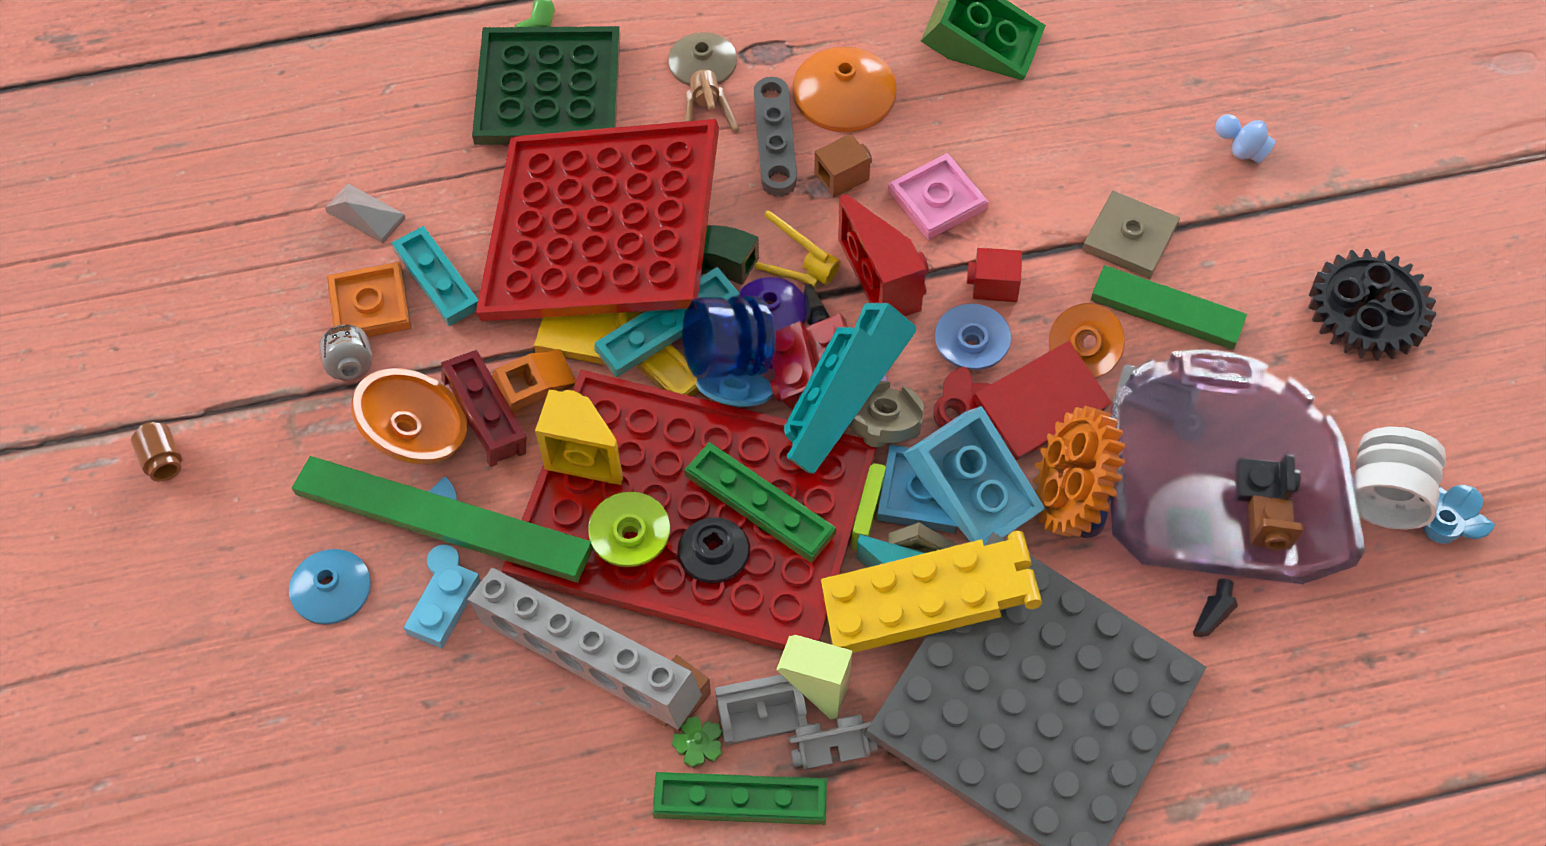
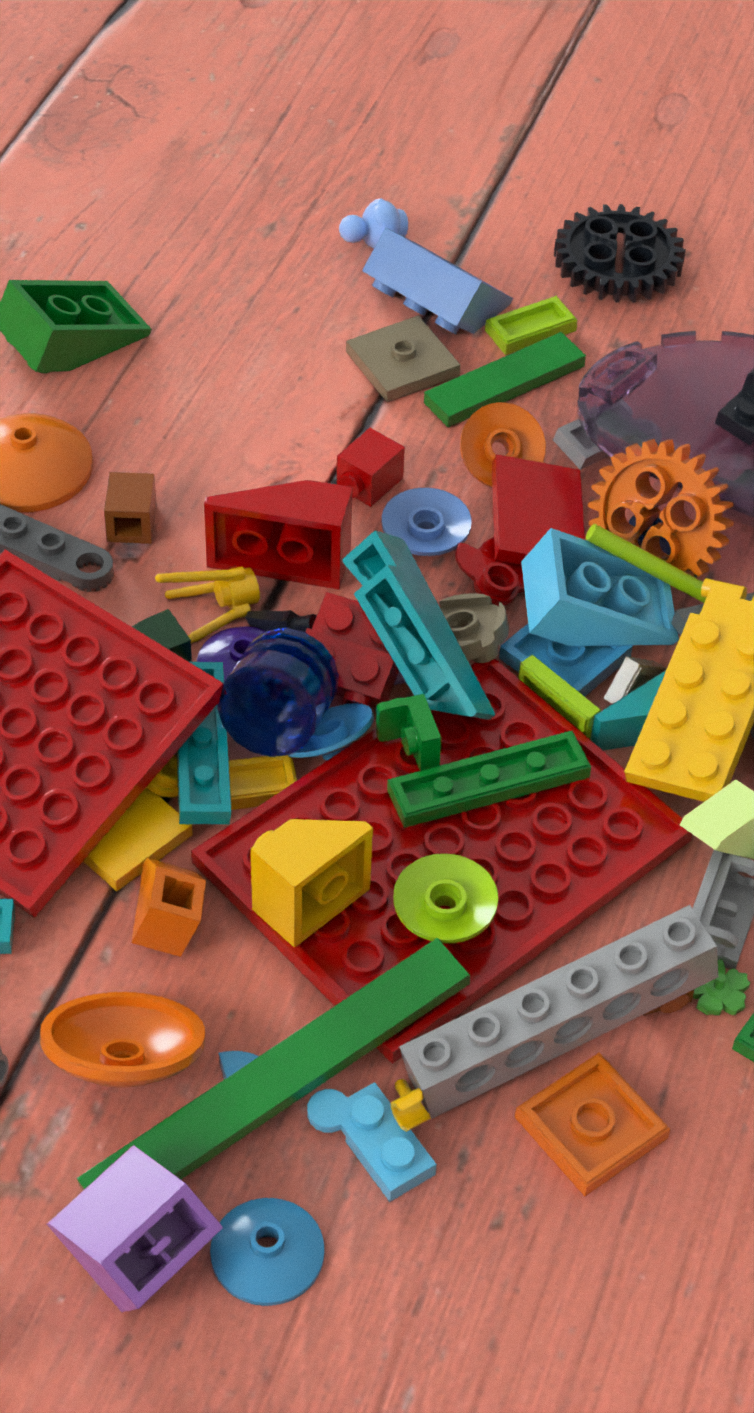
camera: 60 degrees left, 10 degrees down
(280, 502) = (134, 1228): none -> medium lavender slope
(460, 604) = (408, 1108): none -> yellow hand
(484, 406) = (164, 963): dark red container -> none
(534, 719) = (592, 1123): none -> orange tile
(716, 564) = (515, 862): black piece -> none
(760, 433) = (414, 724): none -> green bracket
(937, 196) = (228, 461): bright pink tile -> none
(1030, 502) = (645, 561): none -> lime bar
(1222, 208) = (433, 284): none -> medium blue slope
(1242, 292) = (530, 324): none -> lime tile

